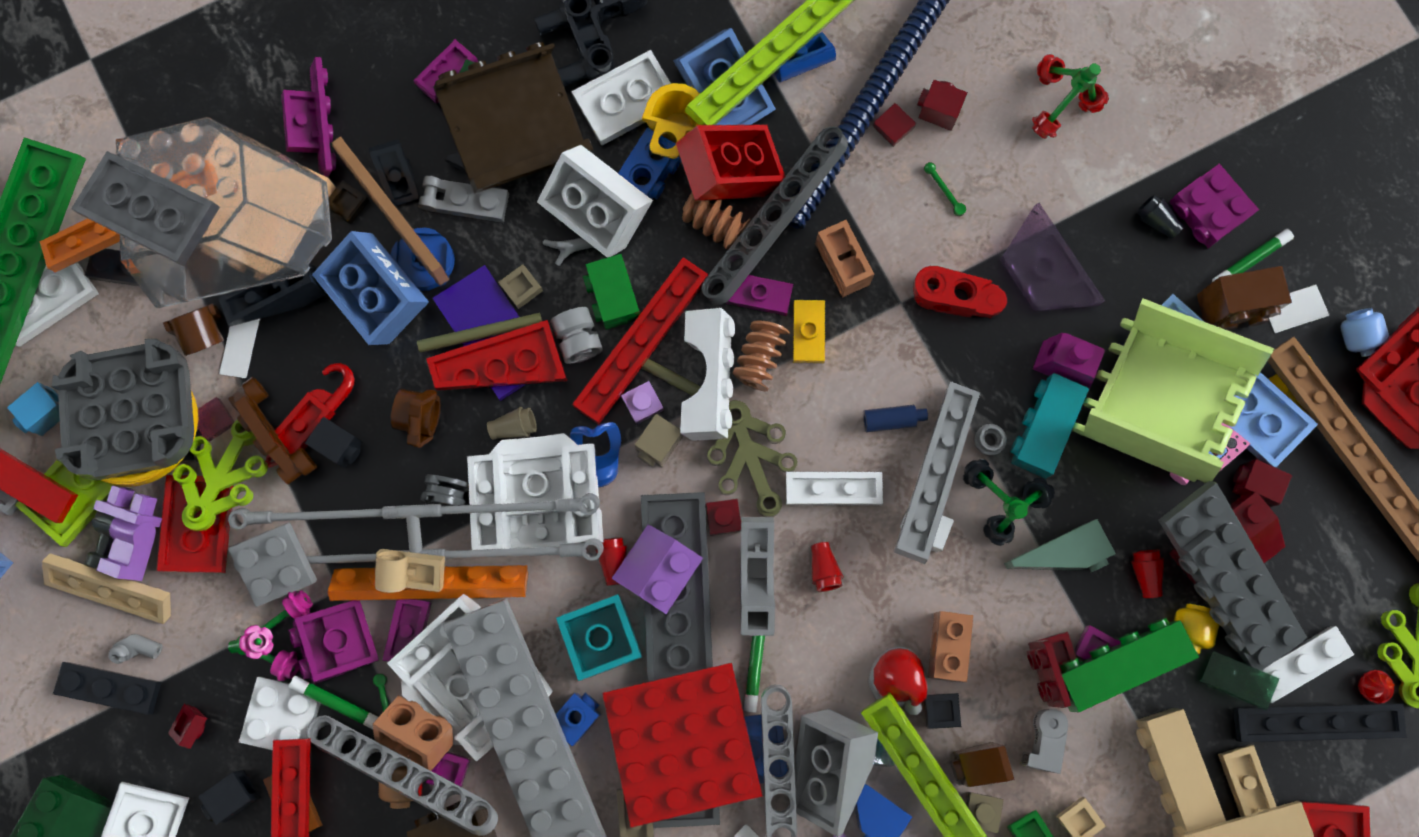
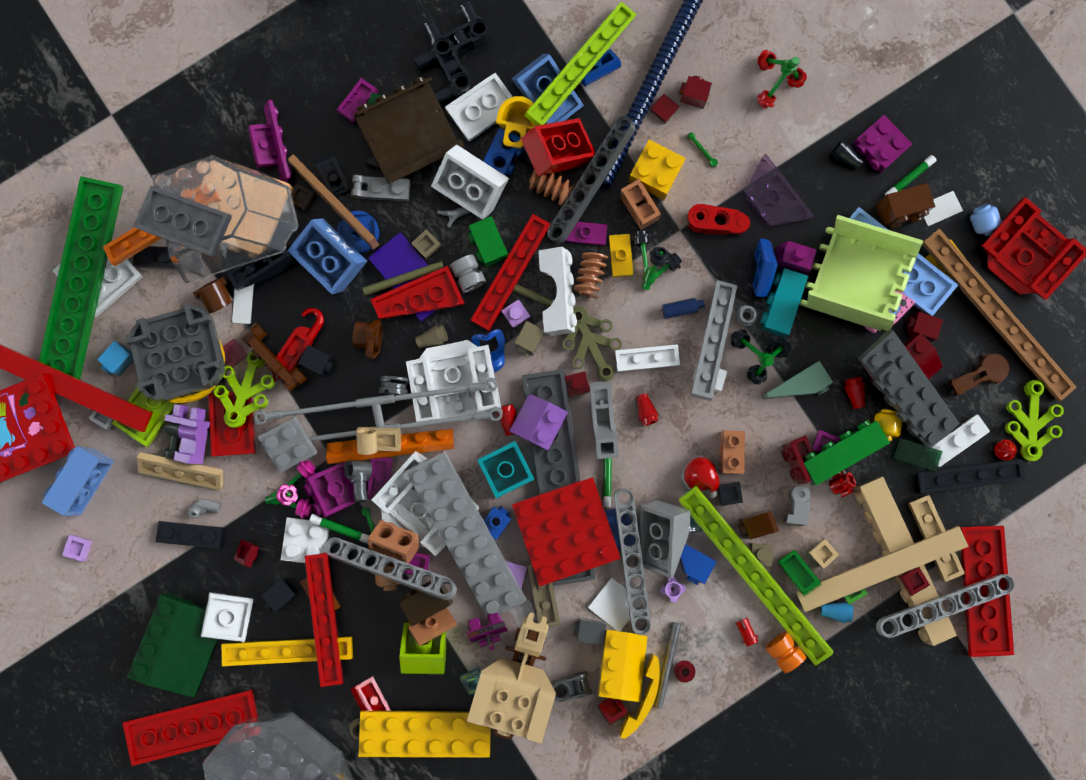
camera: 10 degrees left, 5 degrees up
(374, 621) = (358, 473): none -> dark grey pin
(601, 798) = (518, 572): none -> lavender tile
(864, 337) = (658, 257): none -> plant
(875, 209) = (657, 169): none -> yellow brick
(1025, 372) = (766, 268): none -> blue brick
(1119, 714) = (842, 483): none -> red gear
(1366, 554) = (996, 370): none -> reddish brown piece

